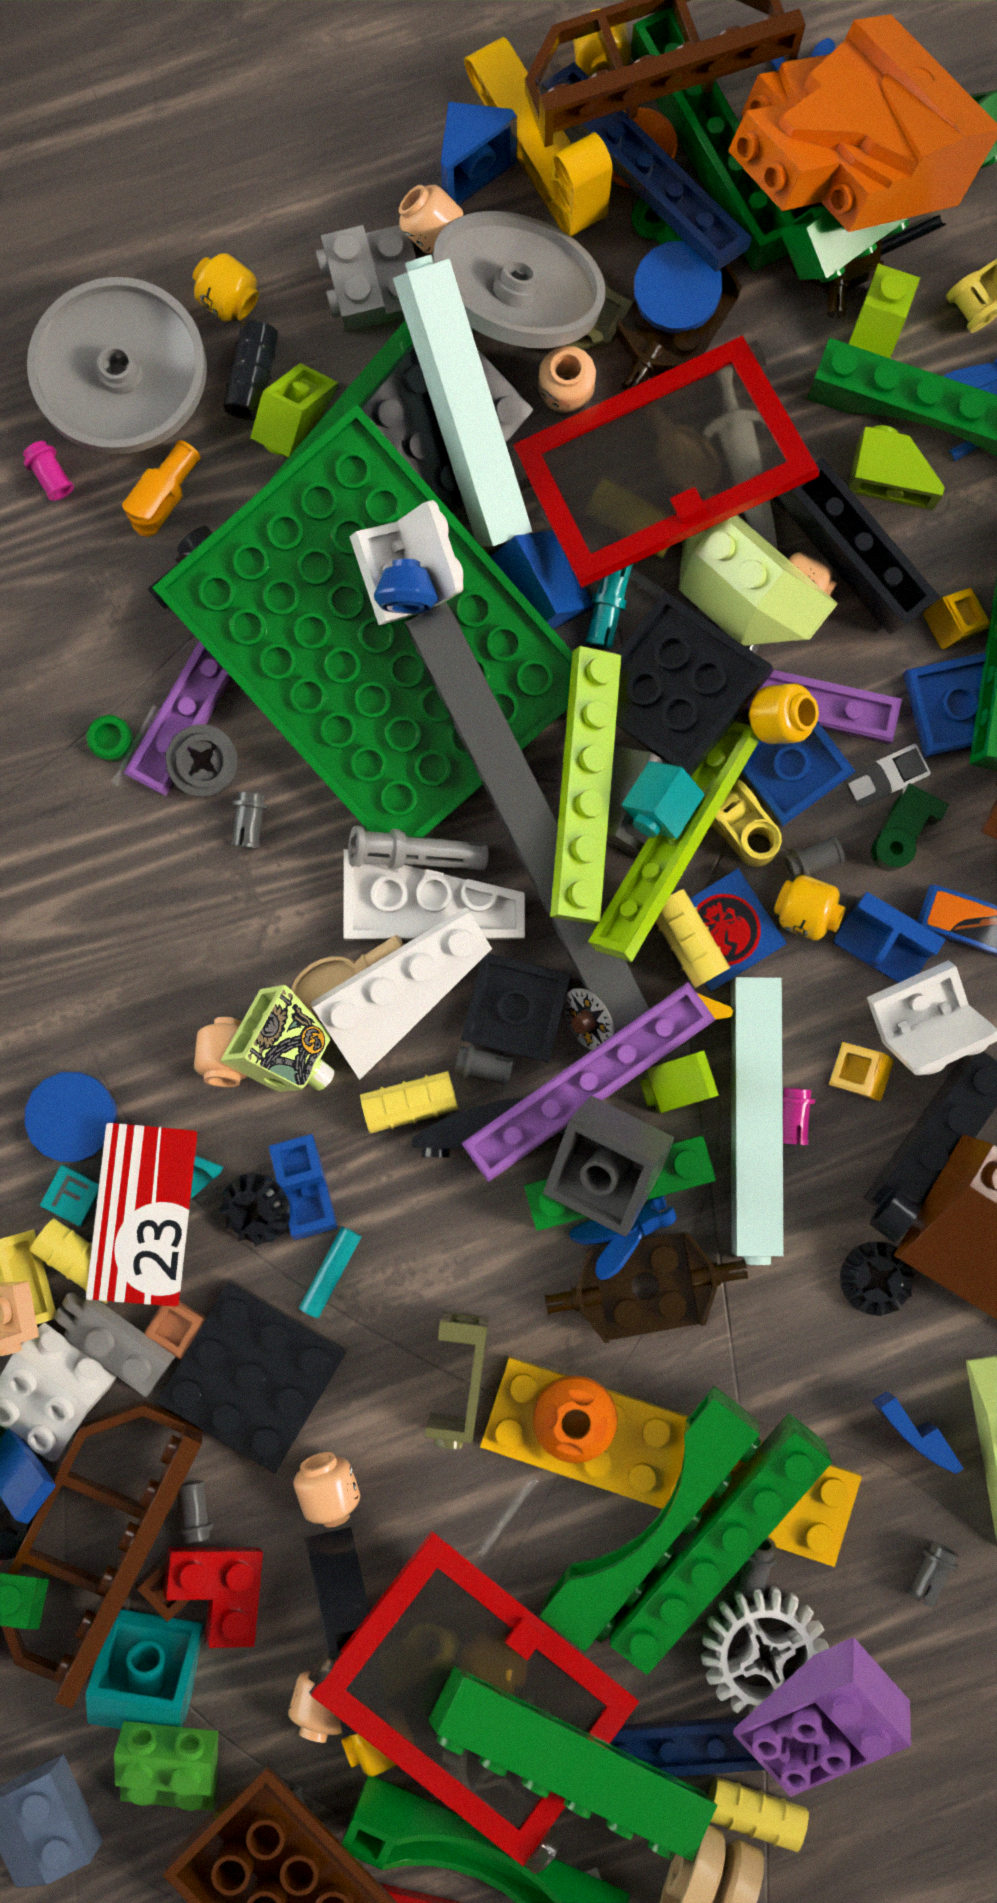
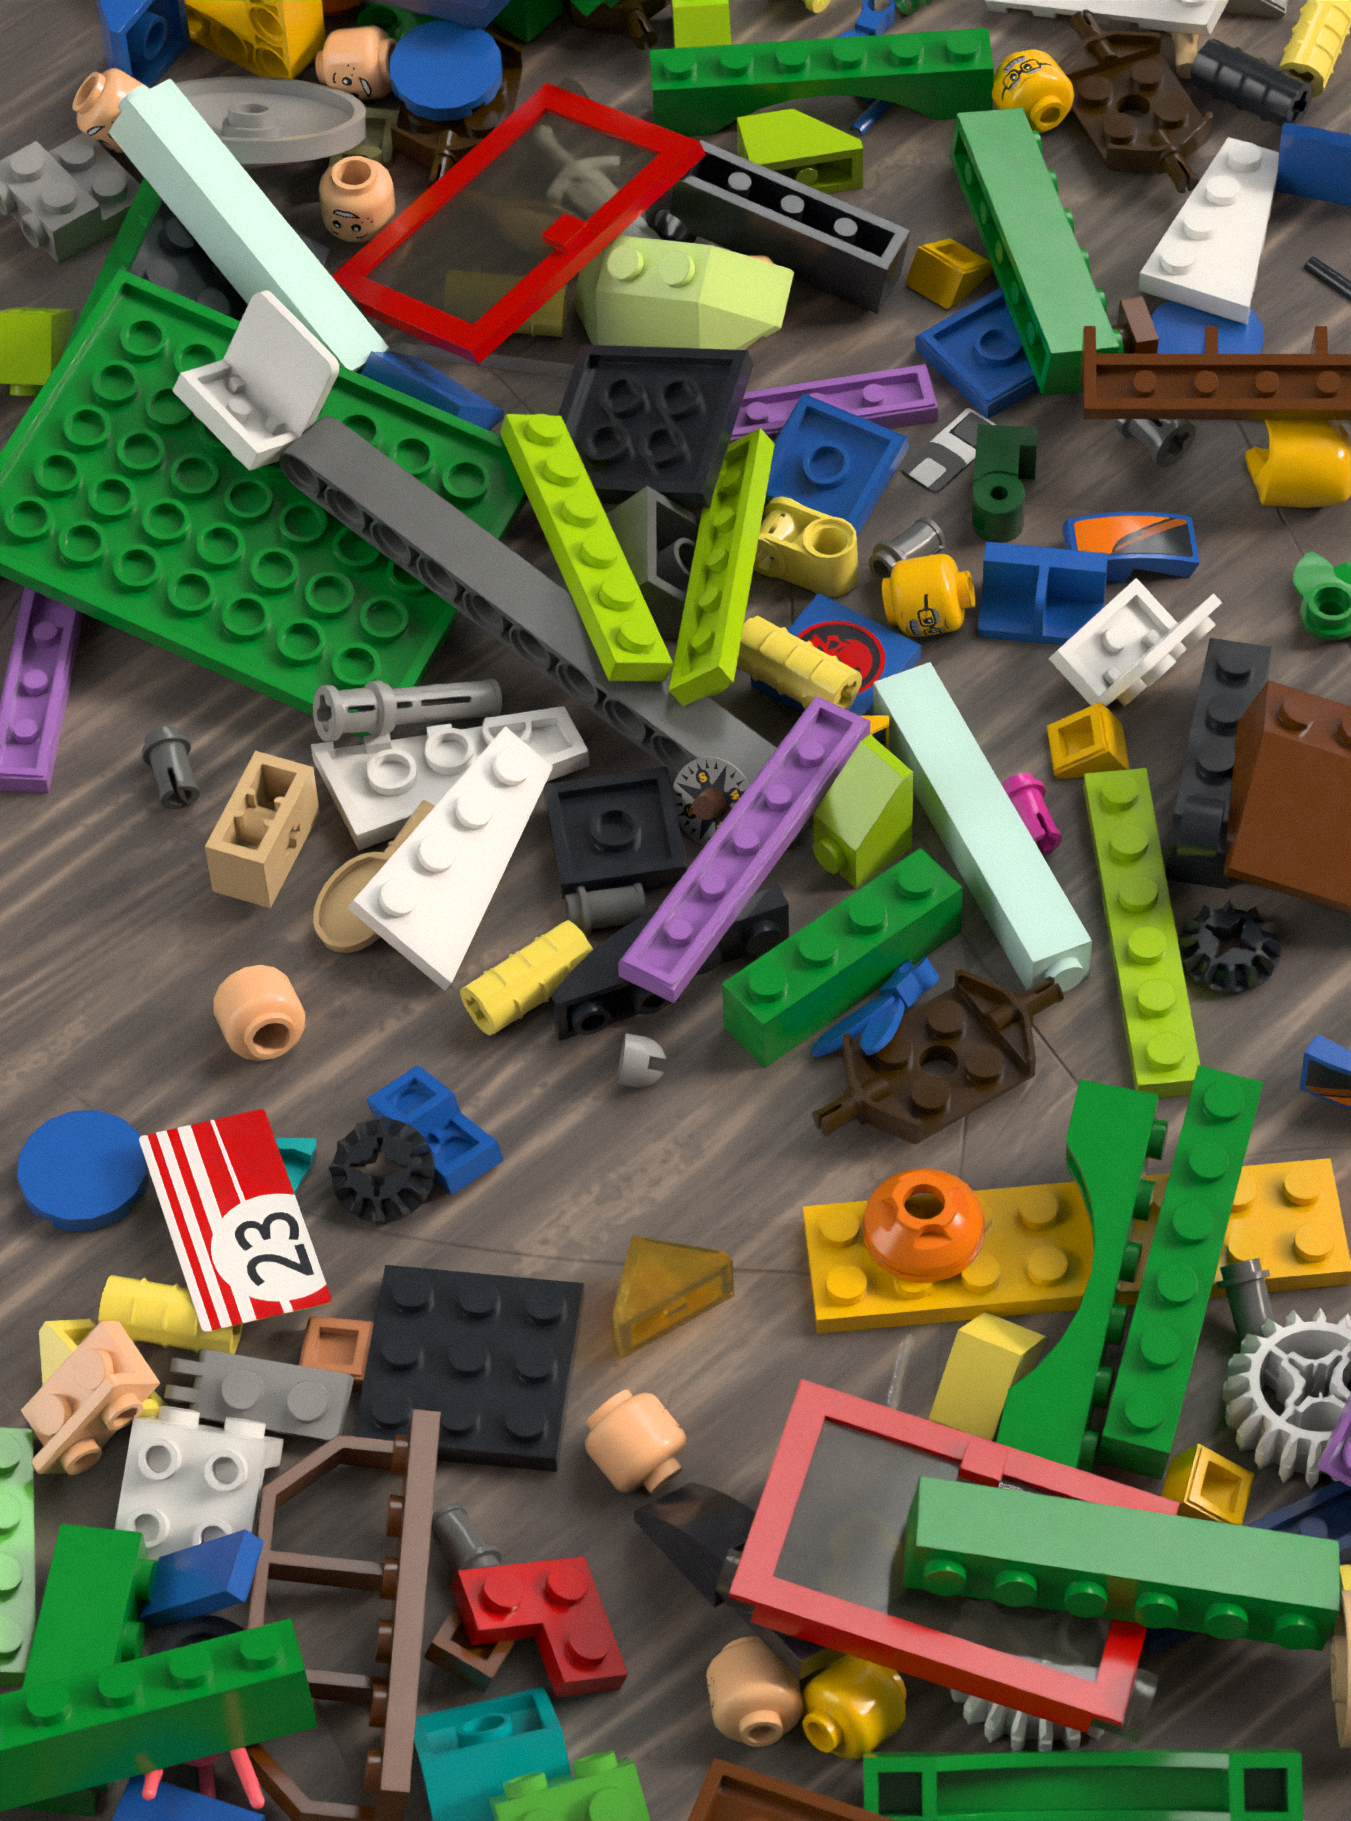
camera: 25 degrees left, 30 degrees down
(71, 1195) = (124, 1251): teal tile -> none
(221, 758) = (106, 728): dark grey gear -> none
(280, 1043) = (332, 961): torso -> none
(281, 911) = (262, 829): none -> tan brick
(330, 1272) = (517, 1209): teal piece -> none
(391, 1383) = (666, 1288): none -> clear yellow slope
(405, 588) = (269, 405): blue cone -> none
(453, 1196) = (634, 1061): none -> light grey hinge
(454, 1430) = (731, 1180): olive panel -> none
(571, 1532) = (981, 1367): none -> light yellow slope
(607, 608) = (518, 387): teal pin -> none
(607, 1165) = (814, 899): dark grey slope -> none
(620, 244) = (357, 62): none -> light nougat head
(662, 800) = (686, 523): teal brick -> none
(668, 1681) = (1208, 1486): none -> yellow slope
(783, 713) = (787, 398): yellow head -> none
(826, 1239) = (1141, 932): none -> lime plate

